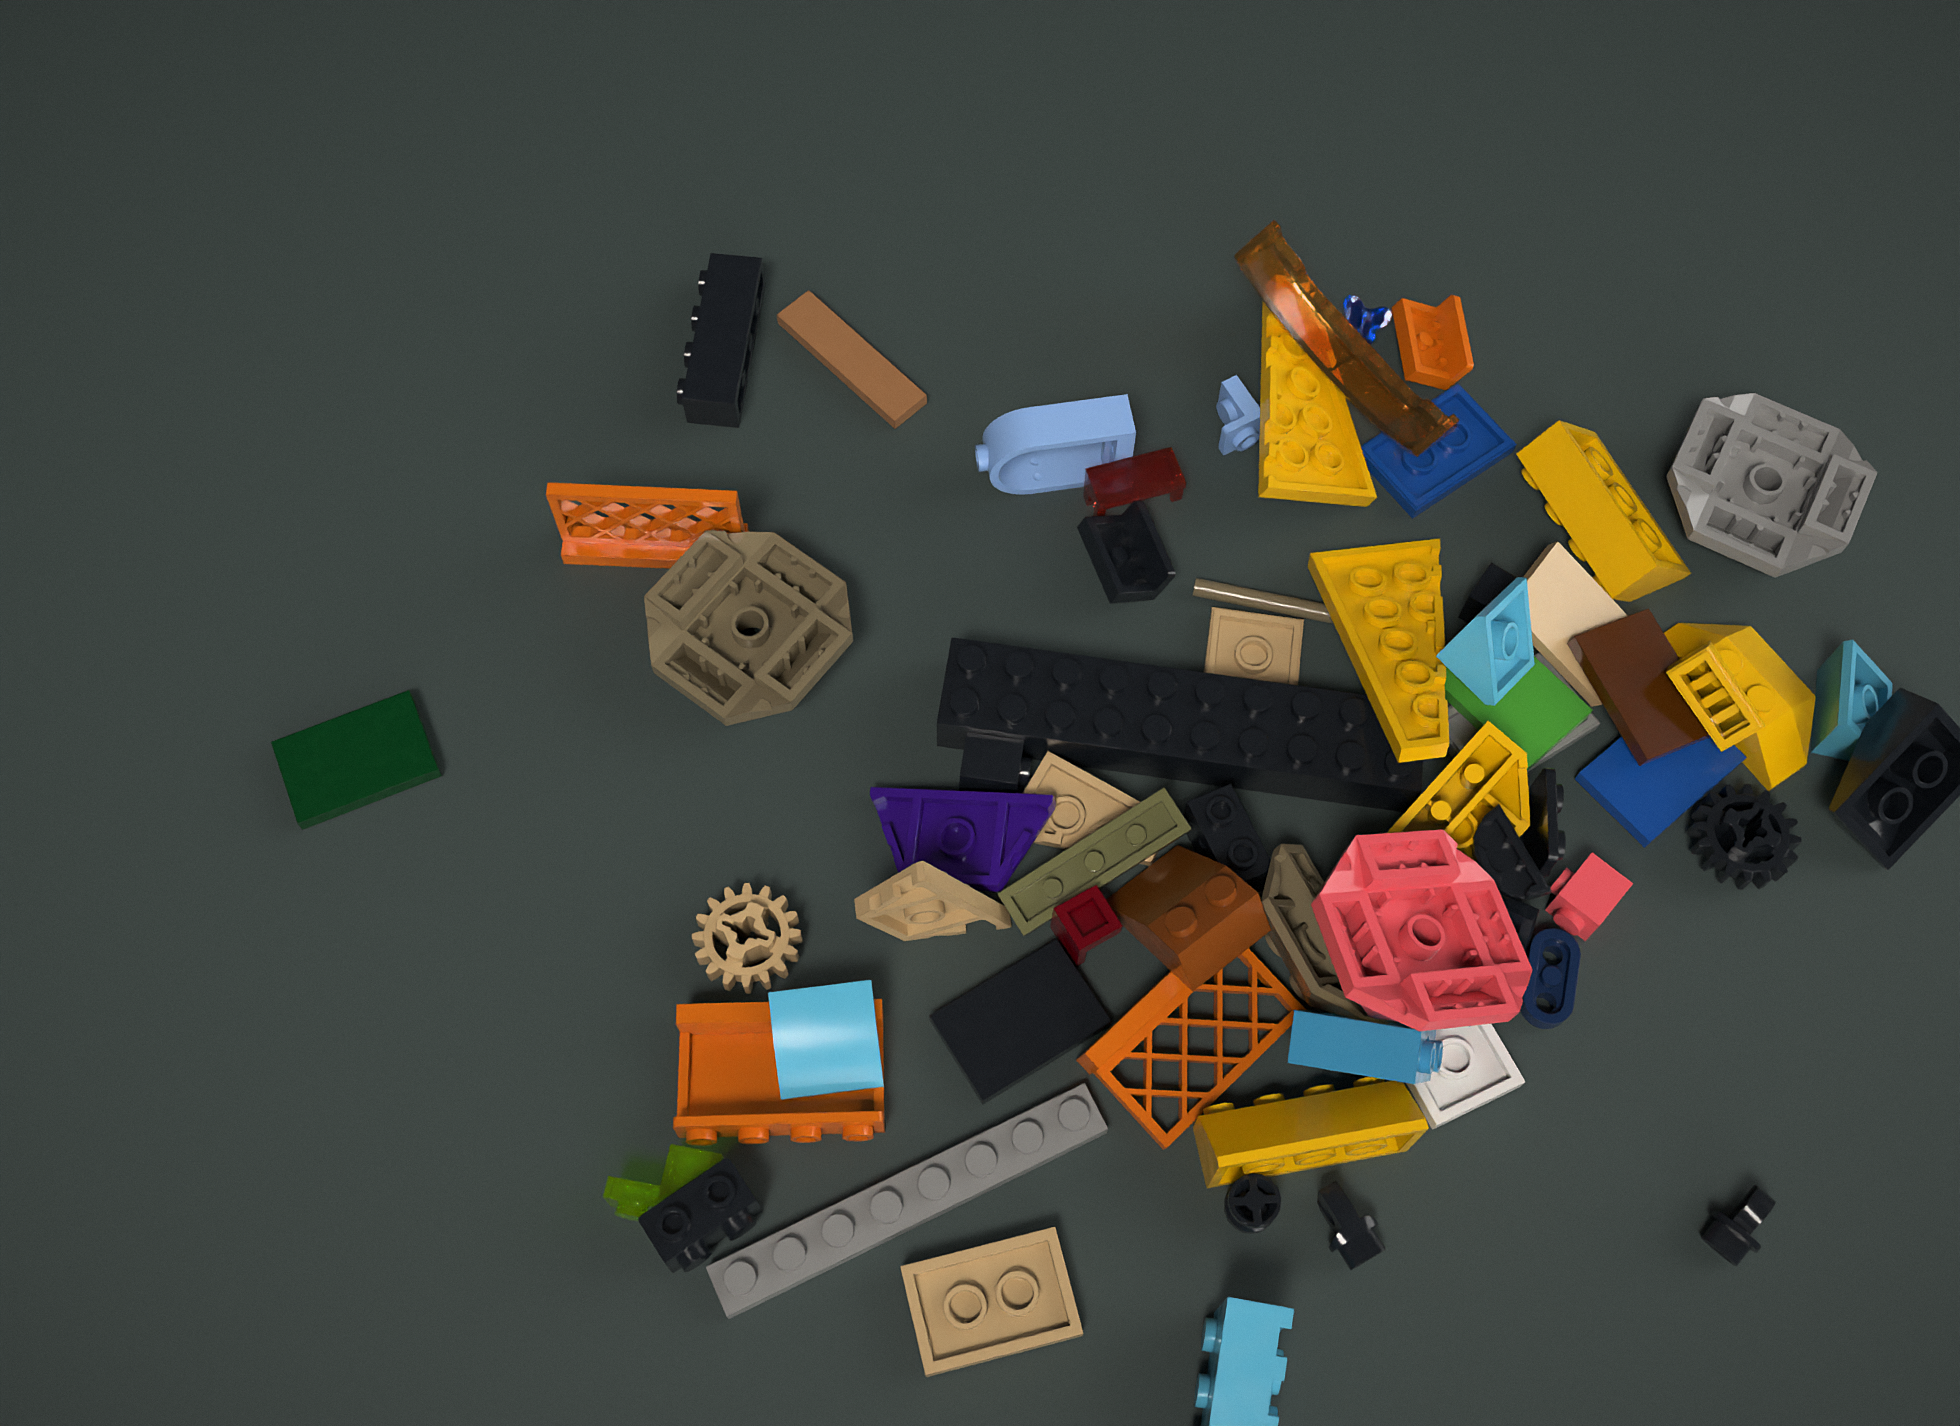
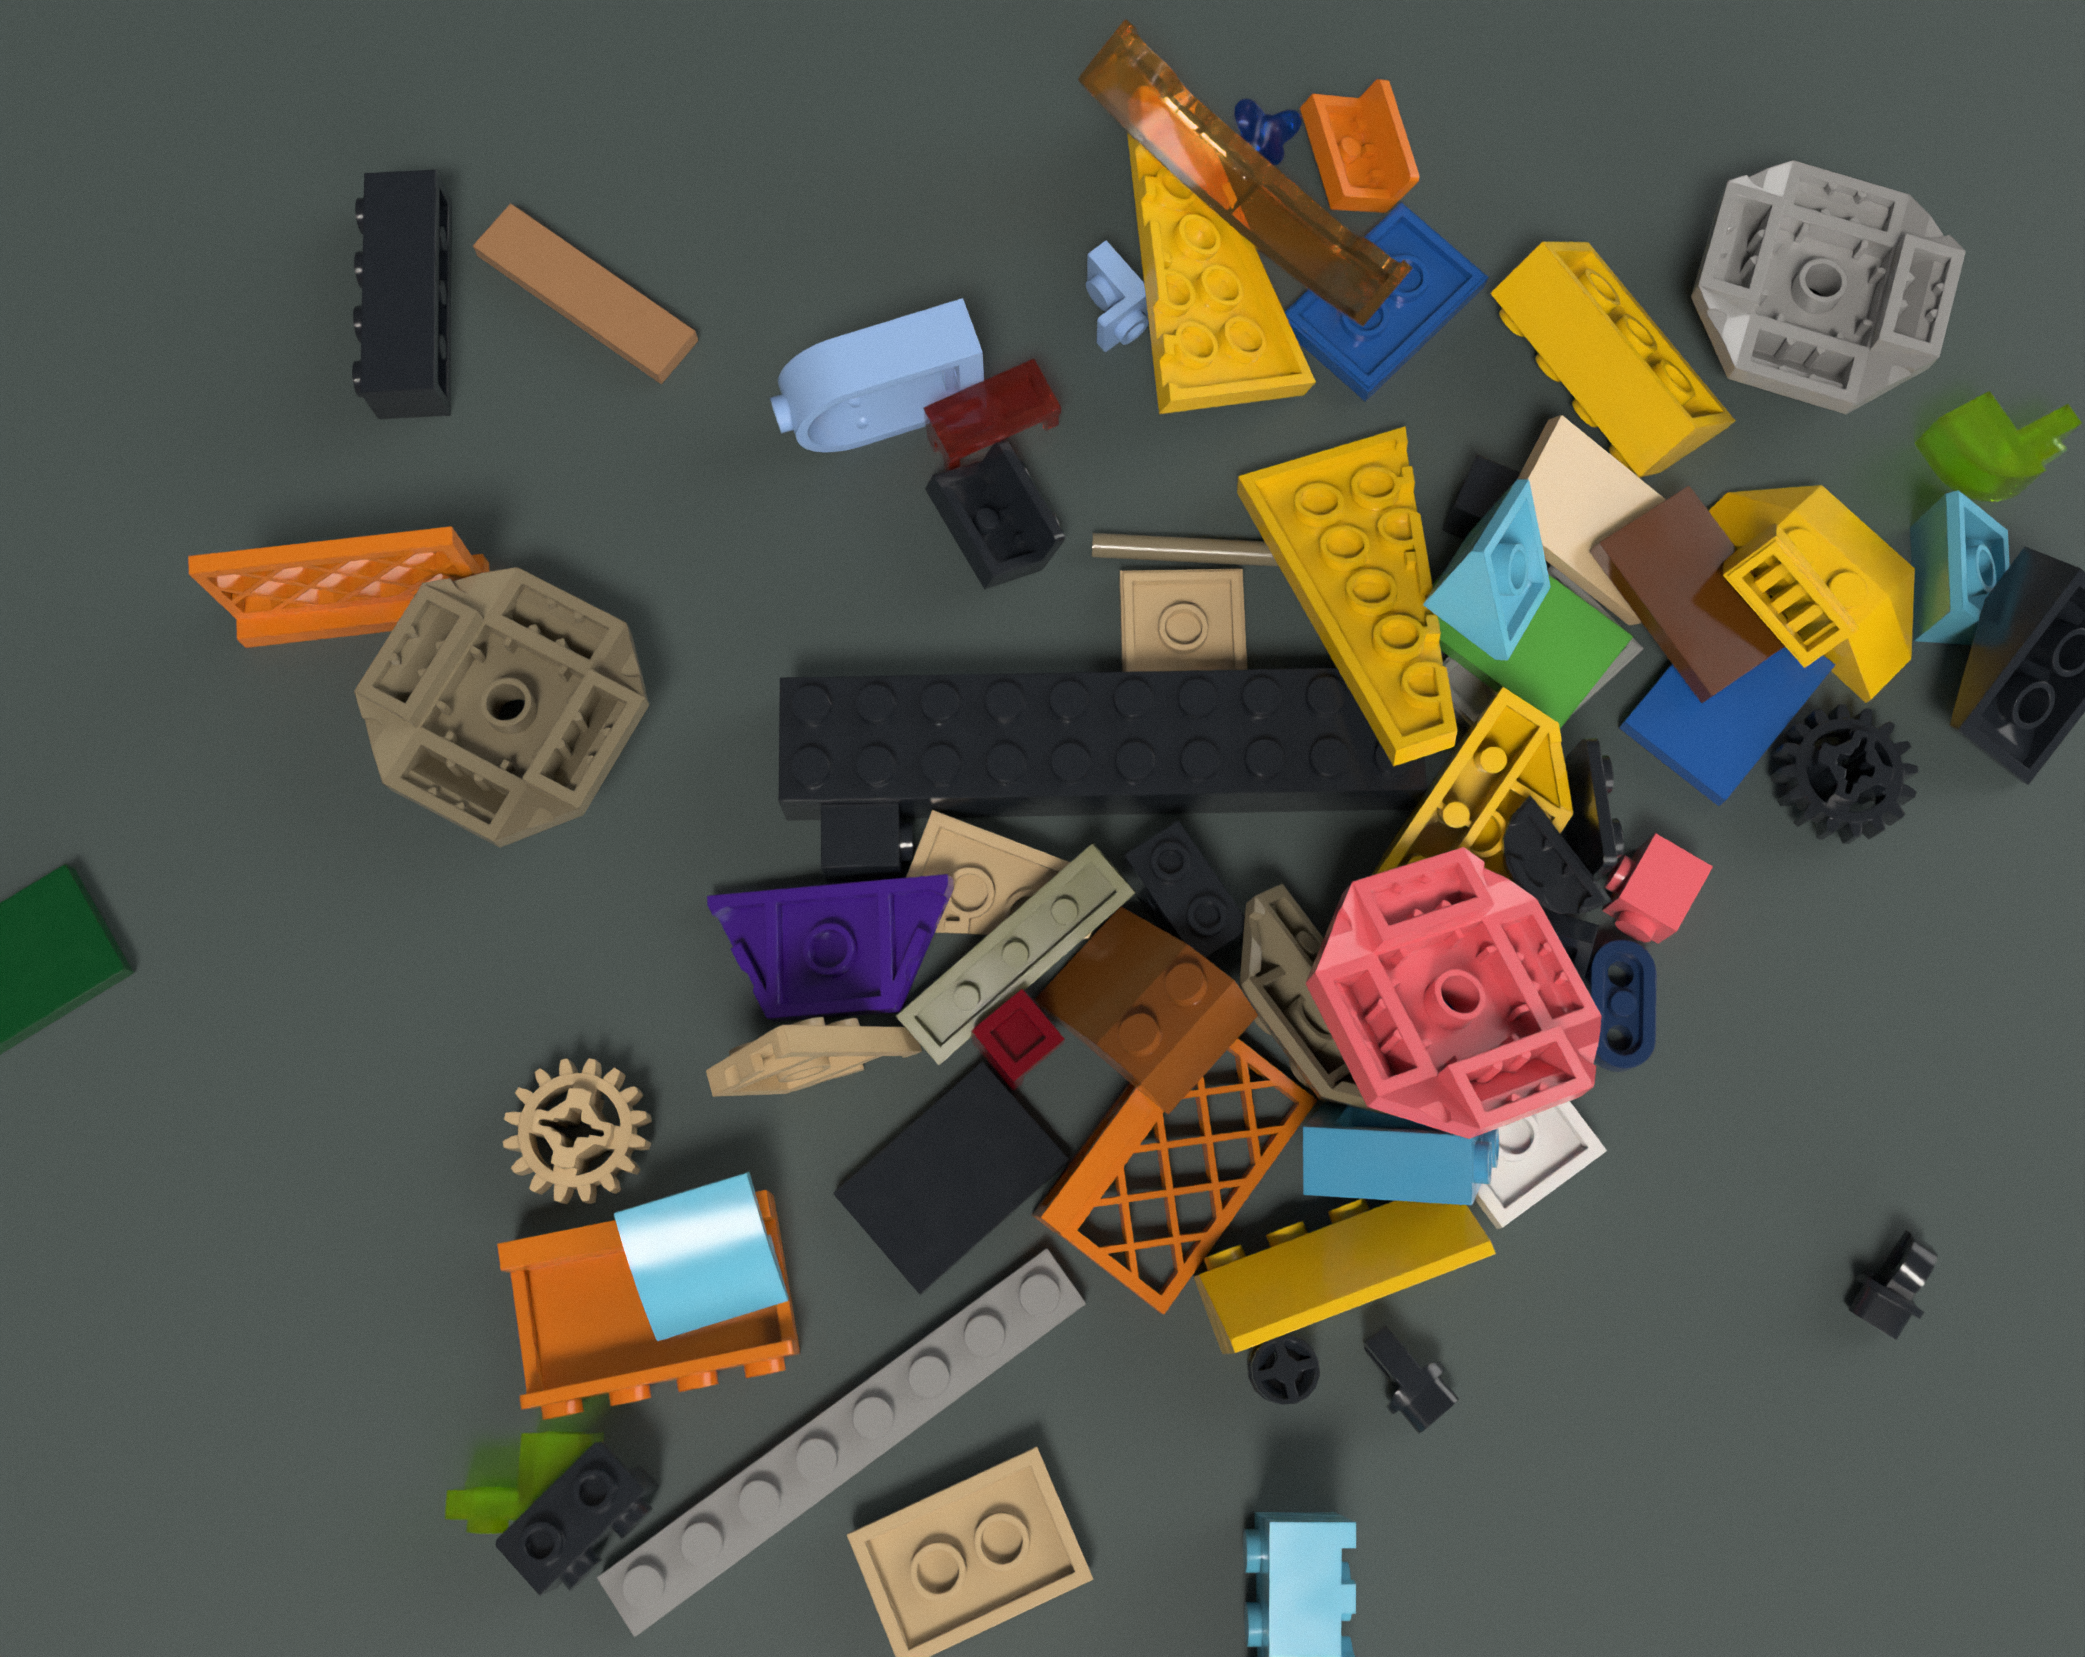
camera: 10 degrees left, 10 degrees up
(1882, 624) = (1984, 452): none -> clear neon green brick

